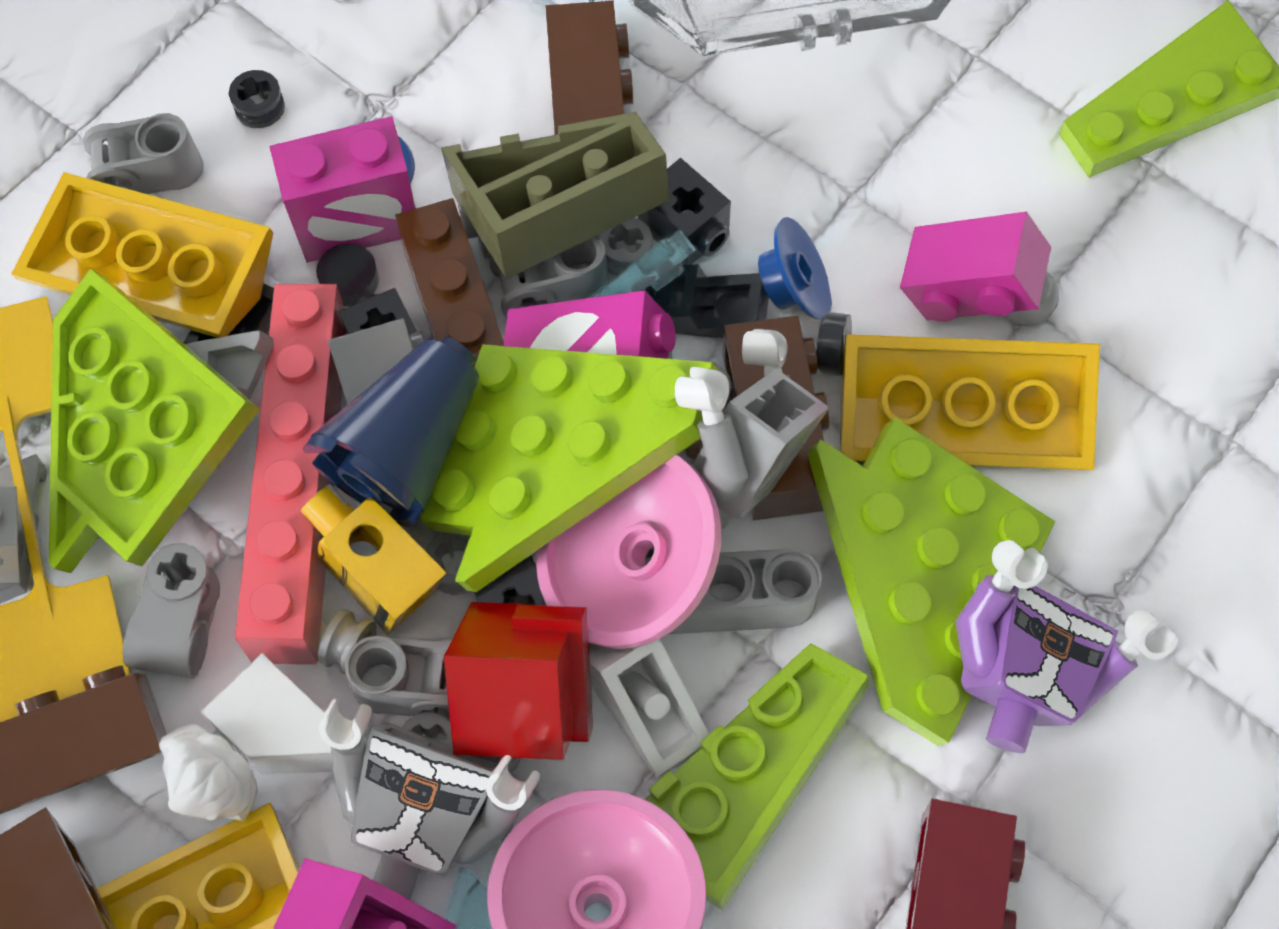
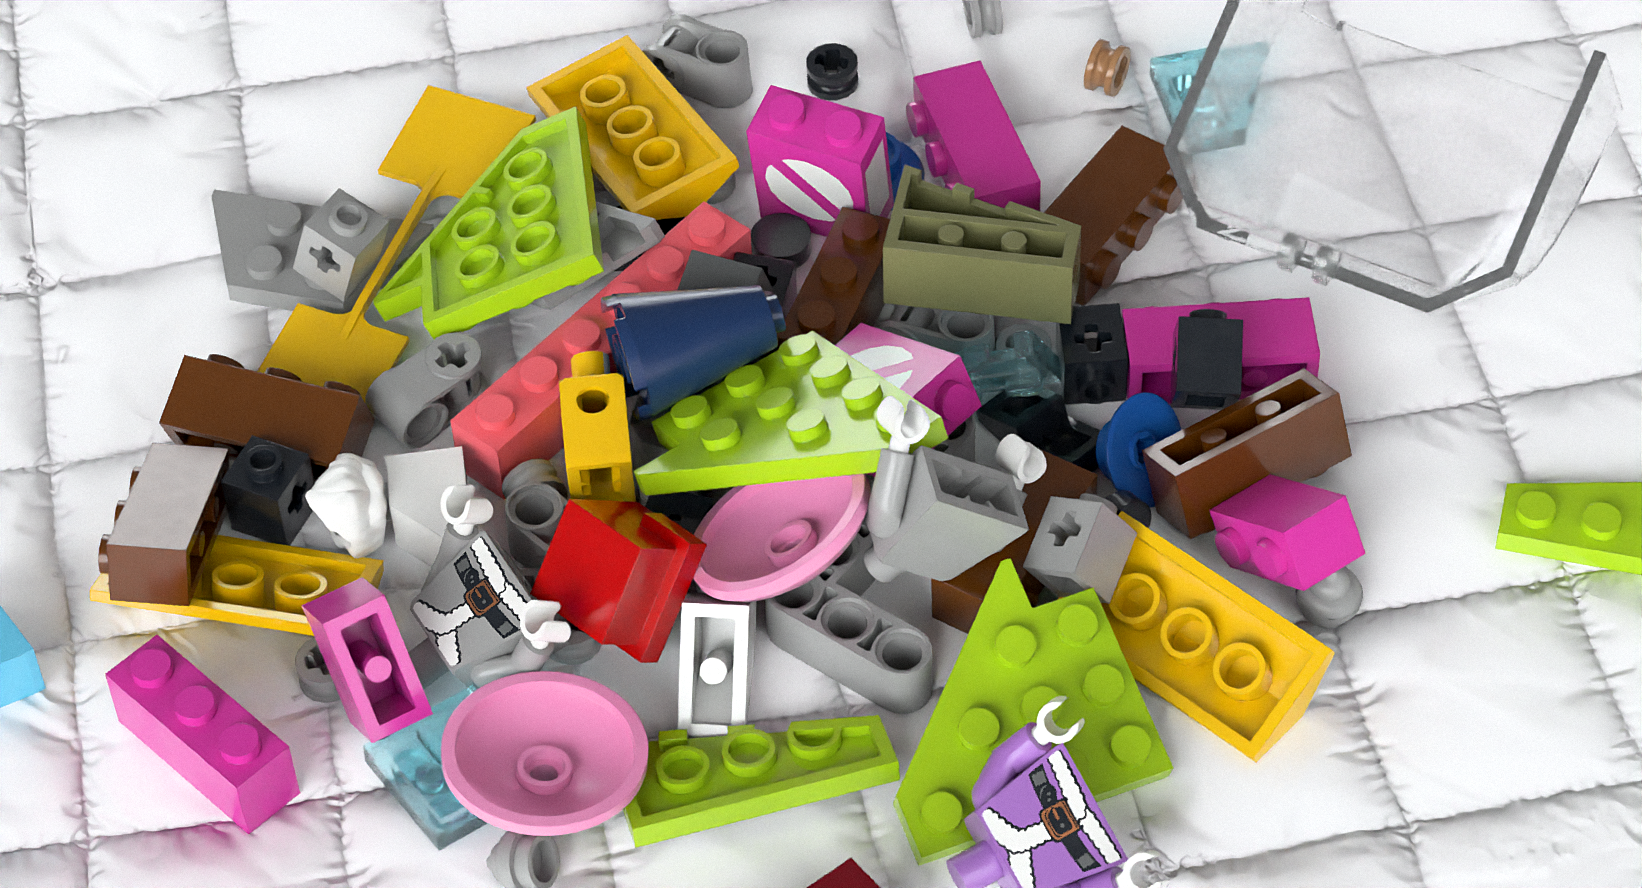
camera: 40 degrees right, 15 degrees down
(114, 815) = (261, 488): none -> black brick
(434, 90) = (971, 136): none -> dark pink brick
(779, 143) = (1276, 343): none -> dark pink brick
(803, 163) = (1206, 360): none -> black brick
(868, 403) = (1080, 546): none -> light grey brick
(877, 218) = (1281, 431): none -> reddish brown brick

